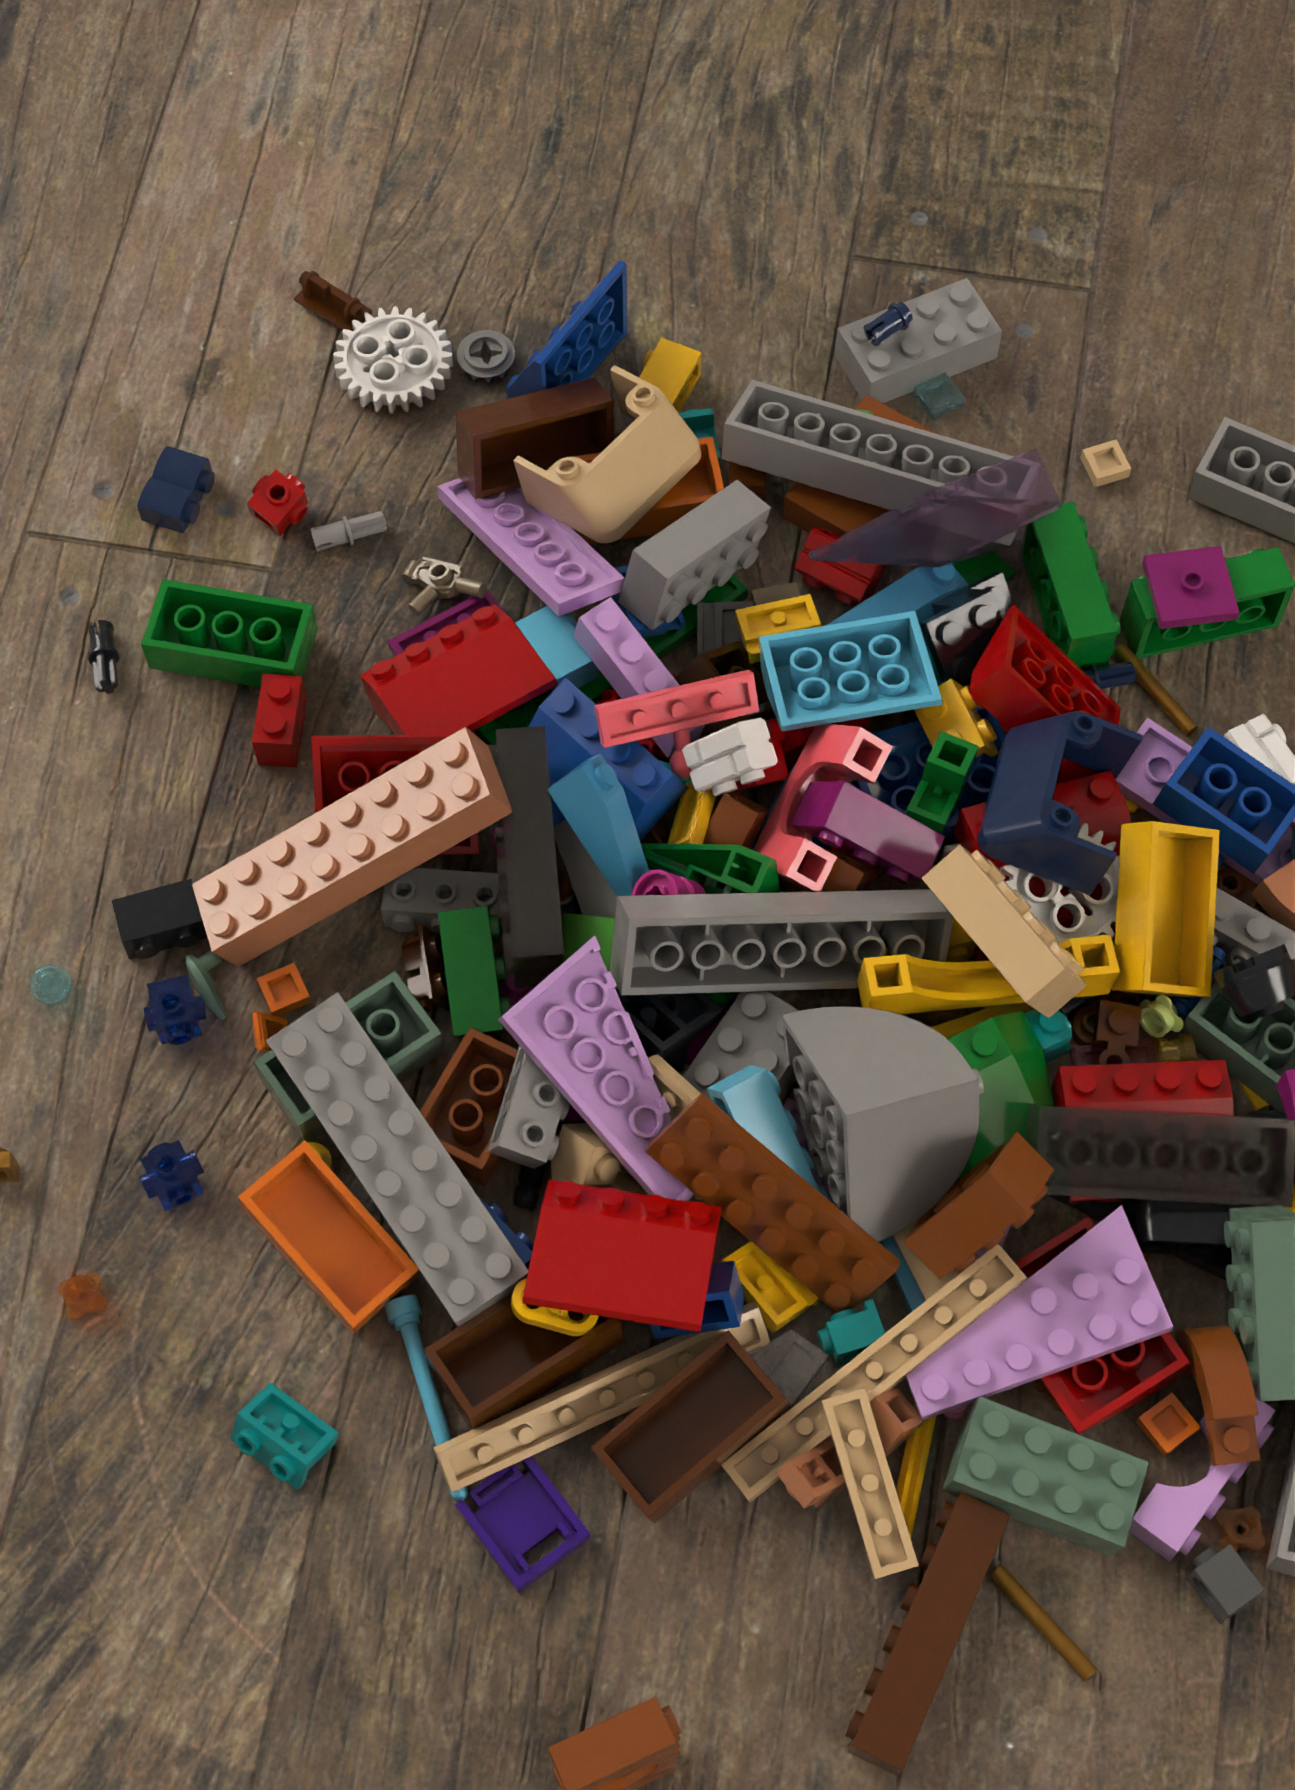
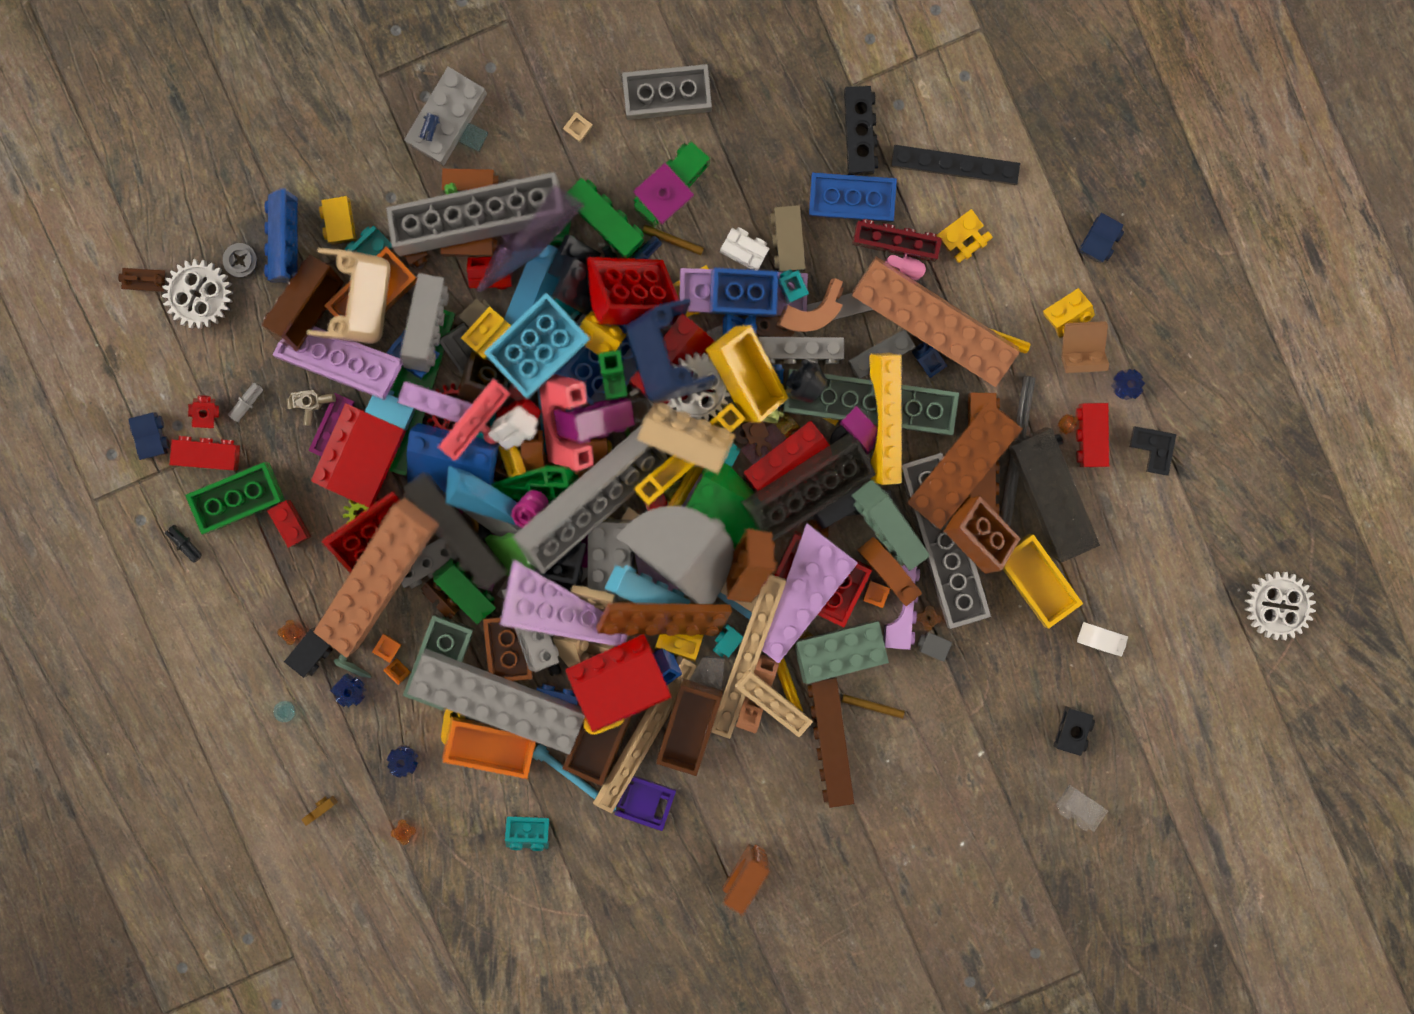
camera: 35 degrees left, 25 degrees up
(154, 865) = (290, 638): none -> clear orange plate
(231, 556) = (205, 453): none -> red brick

